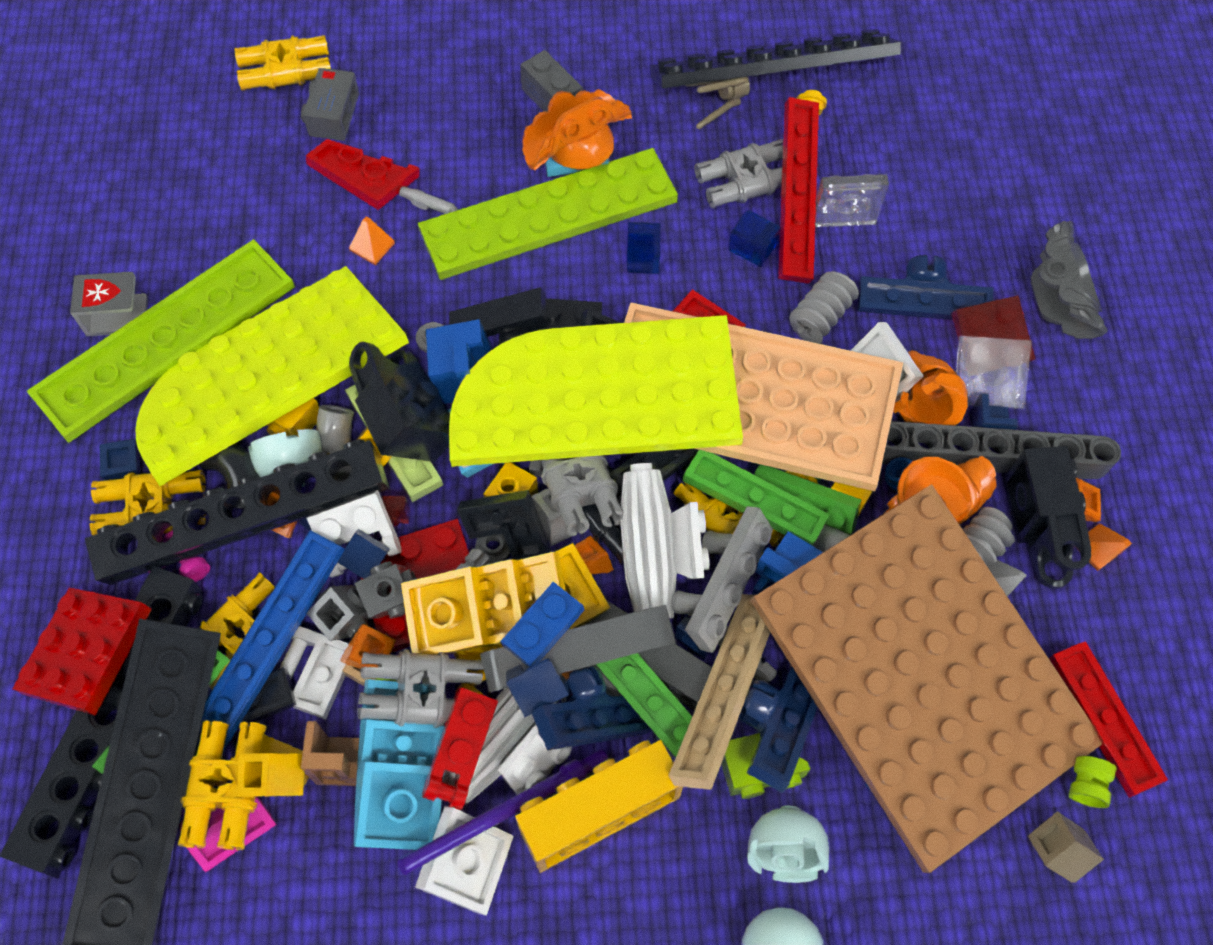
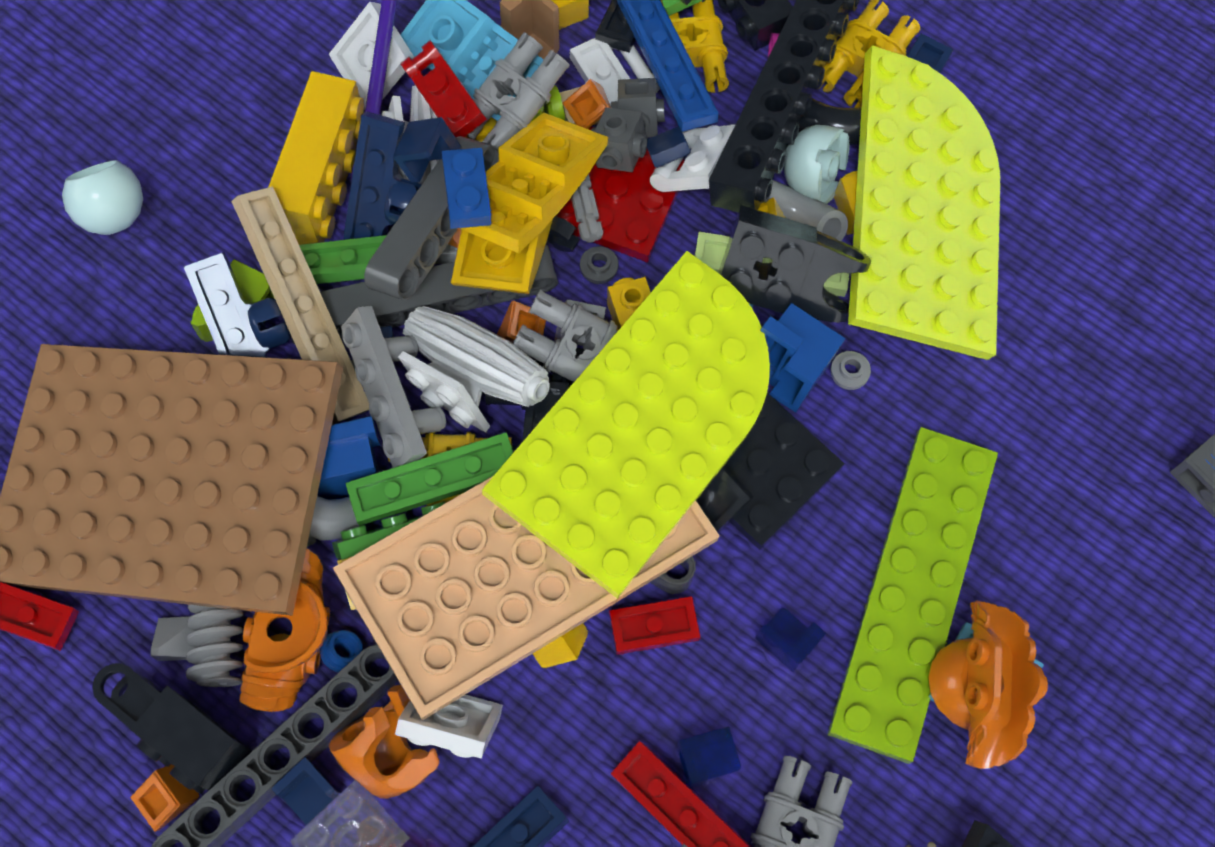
camera: 130 degrees right, 5 degrees up
(106, 302) = (1102, 137): piece -> none
(155, 340) = (1034, 167): lime plate -> none
(363, 176) = (1103, 448): red wing -> none
(371, 241) = (1009, 400): orange slope -> none
(397, 509) = (698, 212): clear red plate -> none
(424, 201) = (1021, 486): light grey piece -> none
(506, 312) = (819, 431): black tile -> none
(508, 515) = (601, 275): black plate -> none
(545, 77) = (1082, 718): dark grey brick -> none
(789, 845) = (160, 268): light aqua cylinder -> none
(823, 306) = (568, 744): light grey piece -> none
(1105, 545) = (109, 767): orange slope -> none

